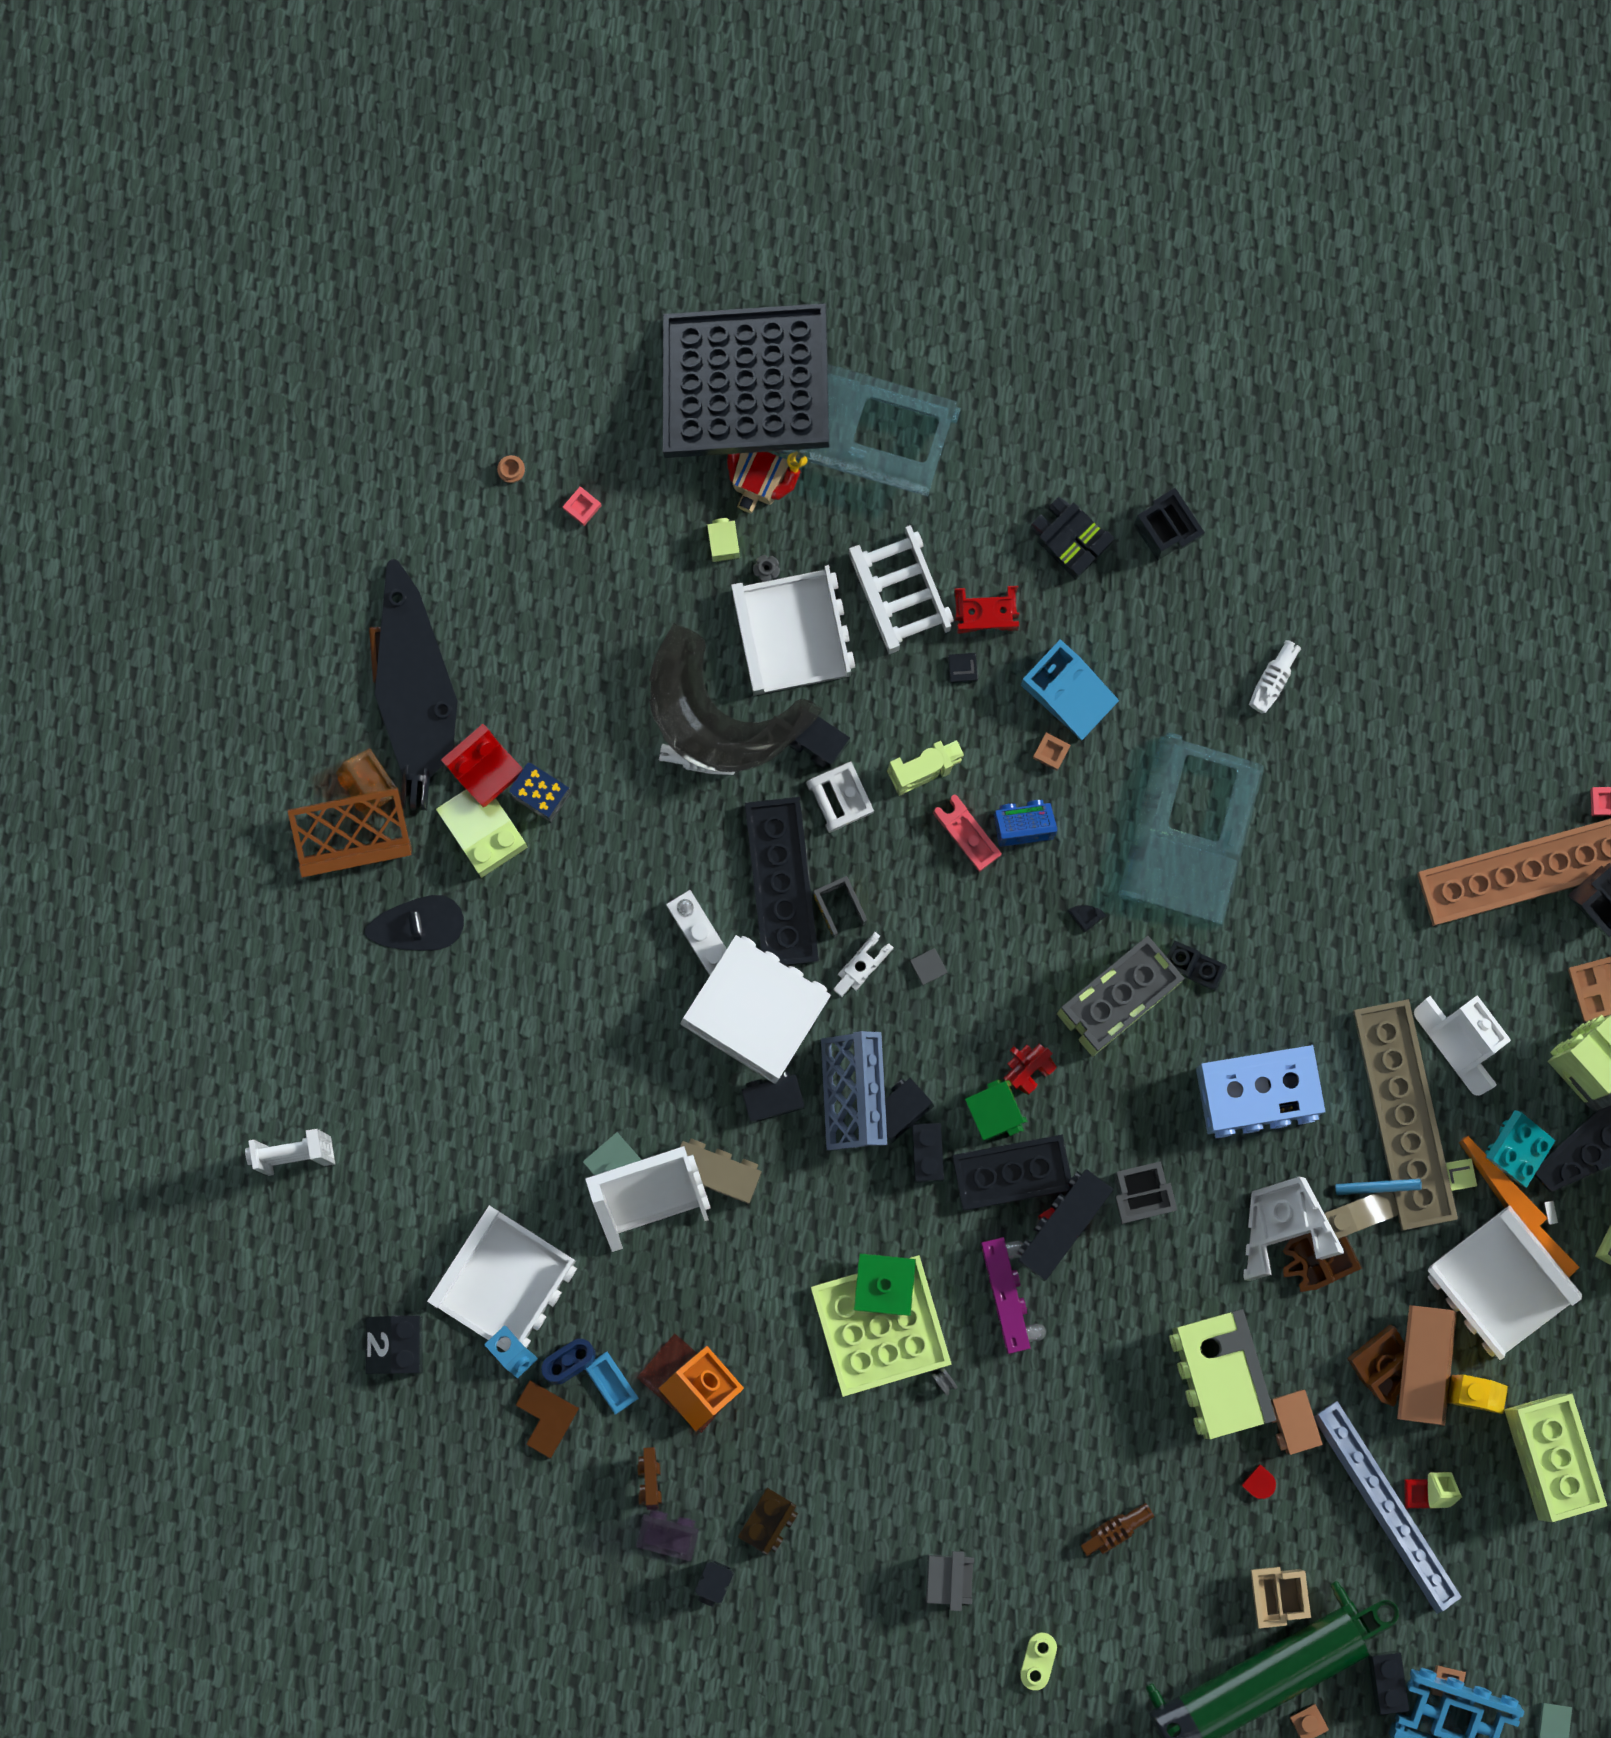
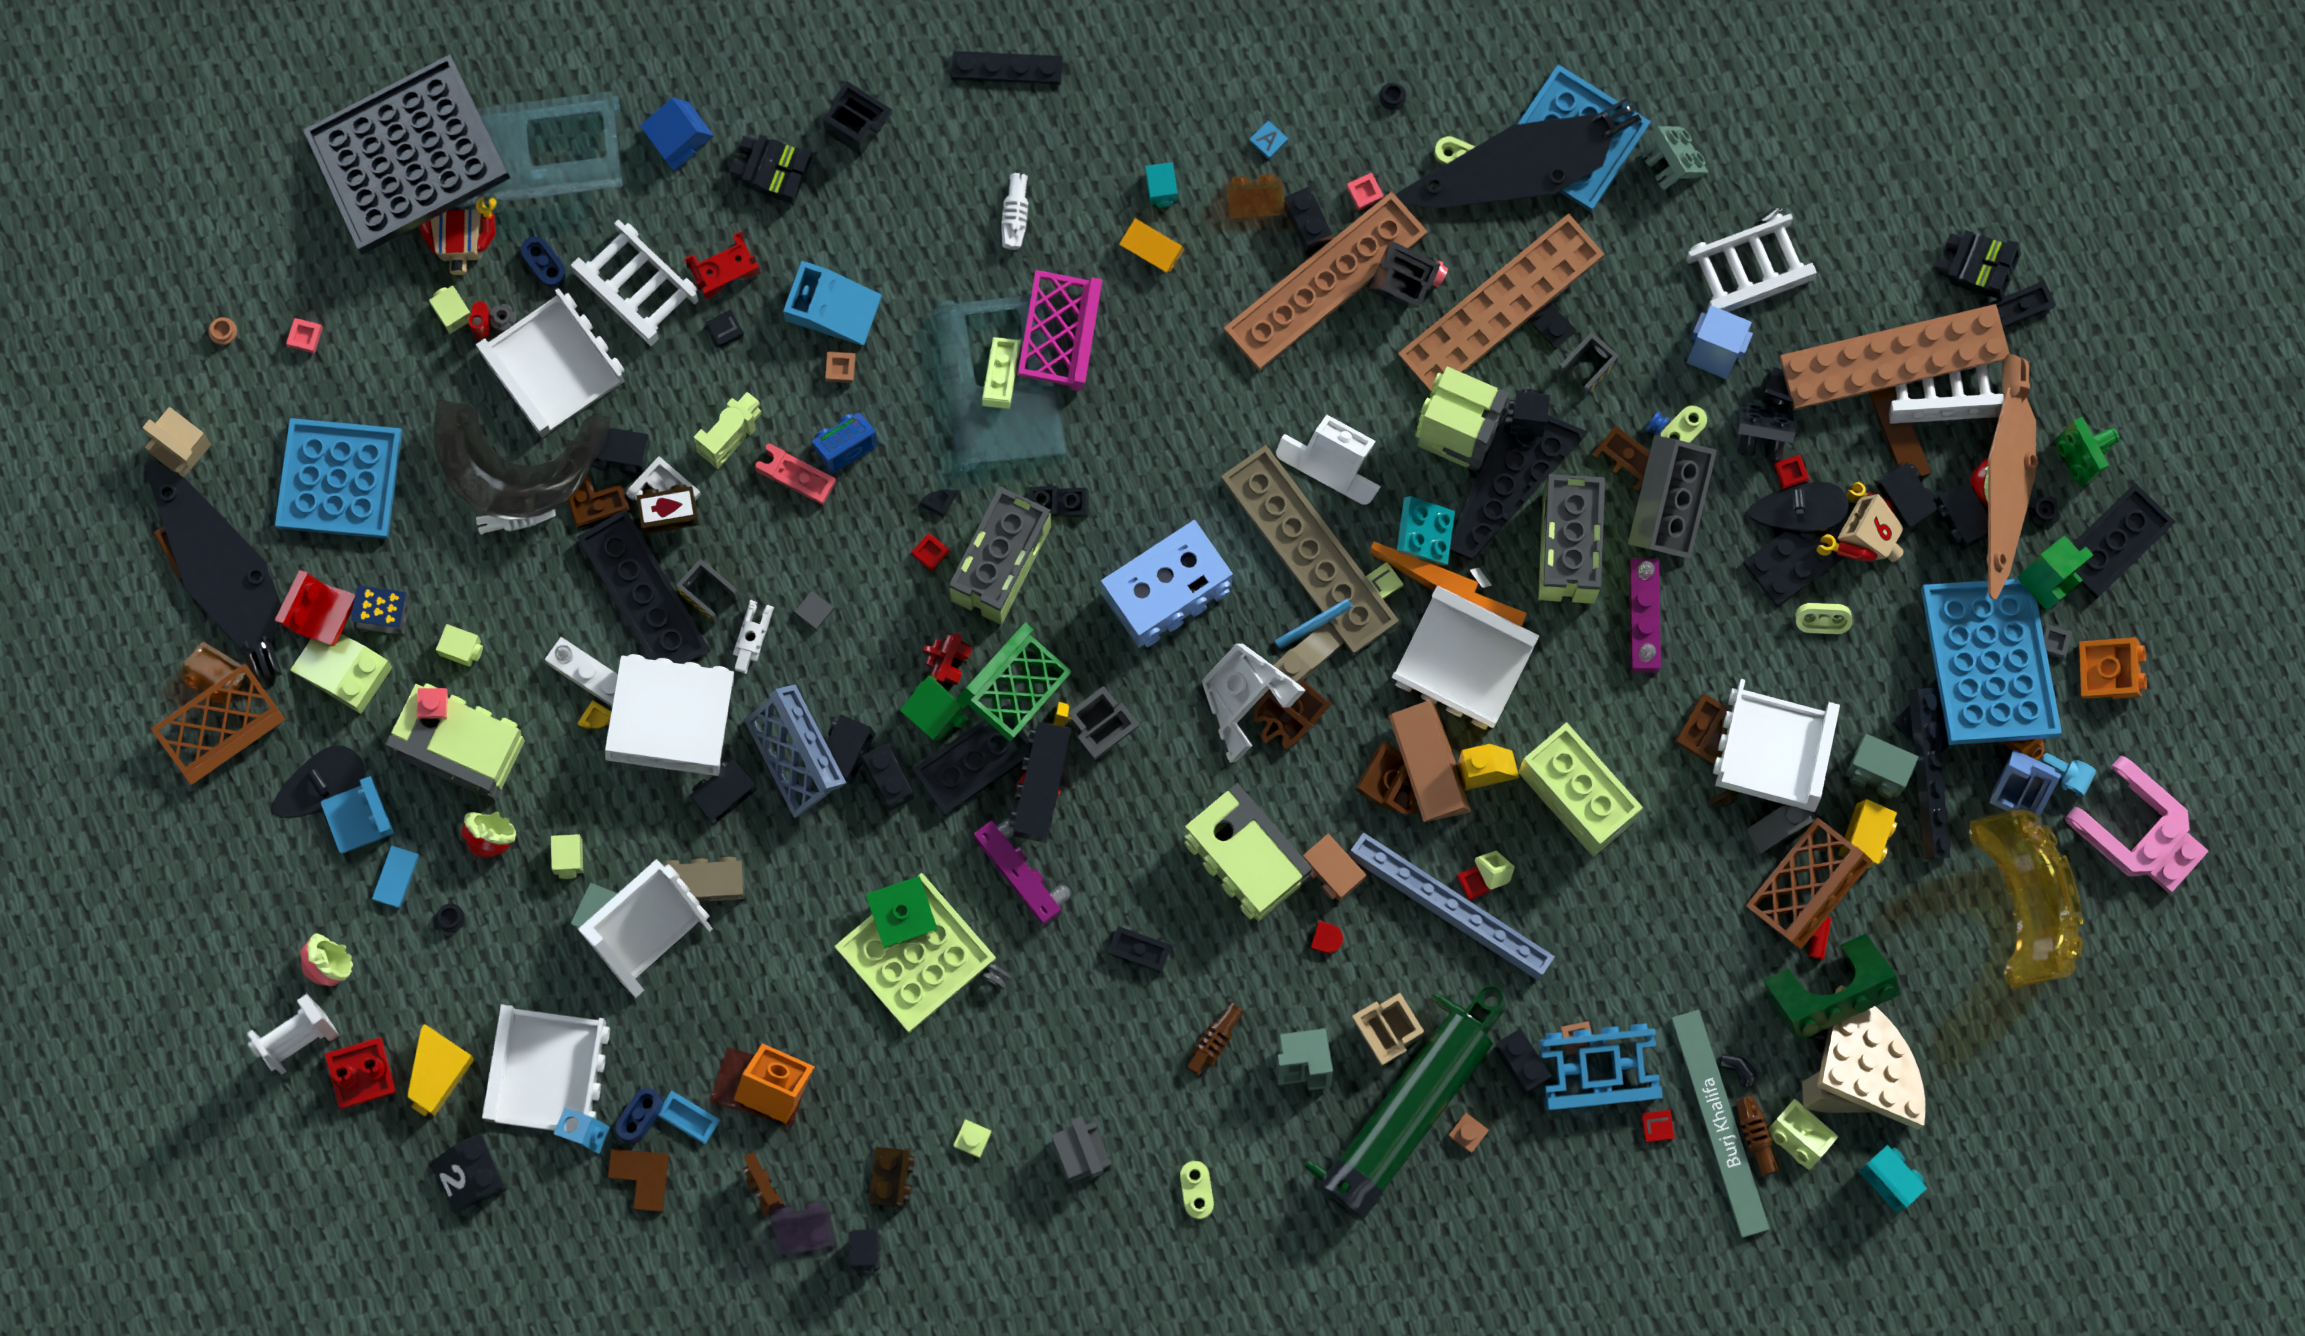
camera: 25 degrees left, 5 degrees down
(338, 1208) = (360, 1073): none -> red plate
(351, 1092) = (325, 961): none -> yellowish green hair
(405, 1237) = (436, 1071): none -> yellow slope
(424, 554) = (175, 442): none -> tan plate
(436, 972) = (357, 816): none -> dark azure bracket
(447, 1042) = (395, 877): none -> dark azure tile
(479, 1101) = (450, 917): none -> black plate
(545, 1041) = (487, 834): none -> yellowish green hair
(547, 904) = (432, 703): none -> coral plate
(555, 652) = (338, 478): none -> dark azure plate
(558, 953) = (463, 748): none -> yellowish green piece
(596, 856) = (459, 646): none -> yellowish green brick
(607, 1093) = (567, 855): none -> yellowish green brick
(689, 975) = (595, 716): none -> yellow tile
(744, 562) = (479, 320): none -> red piece
(775, 781) = (593, 506): none -> reddish brown tile
(826, 533) = (544, 262): none -> dark blue plate
(837, 815) = (667, 509): none -> brick
(857, 1520) = (972, 1138): none -> yellowish green plate
(999, 466) = (676, 132): none -> blue plate
(1057, 959) = (930, 552): none -> red tile
(1065, 1102) = (993, 672): none -> green fence
(1085, 1416) = (1139, 949): none -> black plate
(1108, 1167) = (1061, 714): none -> yellow tile
(1192, 1588) = (1305, 1058): none -> sand green plate
(1196, 824) = (1001, 373): none -> yellowish green tile
(1288, 819) = (1083, 335): none -> dark pink fence
(1327, 537) = (1007, 67): none -> black plate
(1386, 765) = (1152, 246): none -> light orange hinge
(1420, 712) = (1161, 184): none -> teal brick
(1502, 761) = (1255, 197): none -> clear orange bracket
(1538, 712) = (1268, 140): none -> dark azure tile
(1541, 805) = (1307, 220): none -> black brick

